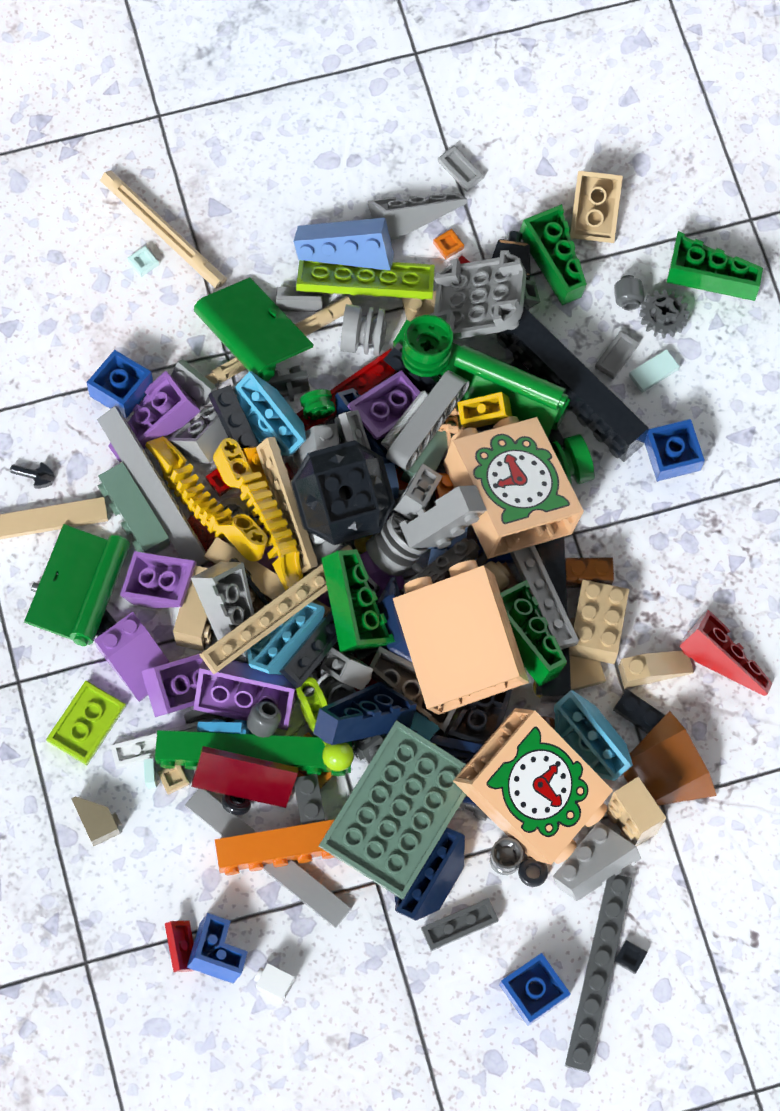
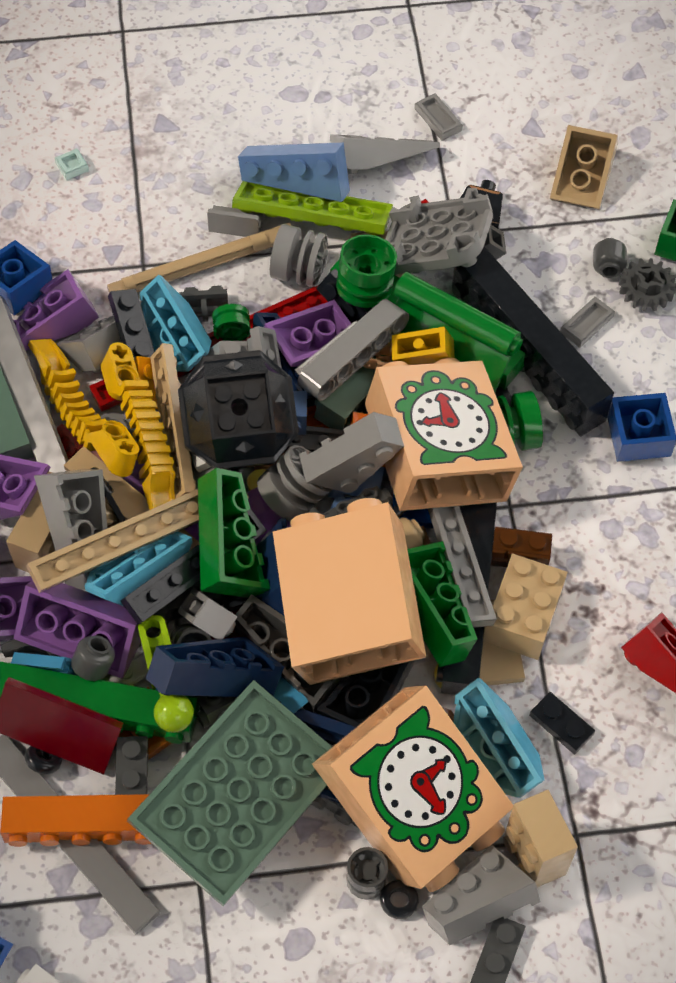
camera: 10 degrees right, 10 degrees down
(163, 229) = (101, 136): tan piece -> none
(193, 382) = (95, 286): light grey plate -> none
(252, 327) = (174, 238): green door -> none
(418, 492) = (328, 423): light grey brick -> none
(435, 878) = (270, 886): dark blue wedge -> none
(448, 244) = (412, 186): orange tile -> none
(459, 924) = (293, 952): dark grey plate -> none
(555, 253) = (530, 207): green wedge -> none
(653, 668) = (586, 670): tan slope -> none
(654, 371) = (628, 343): light aqua tile -> none
(670, 764) = (594, 790): dark orange wedge -> none

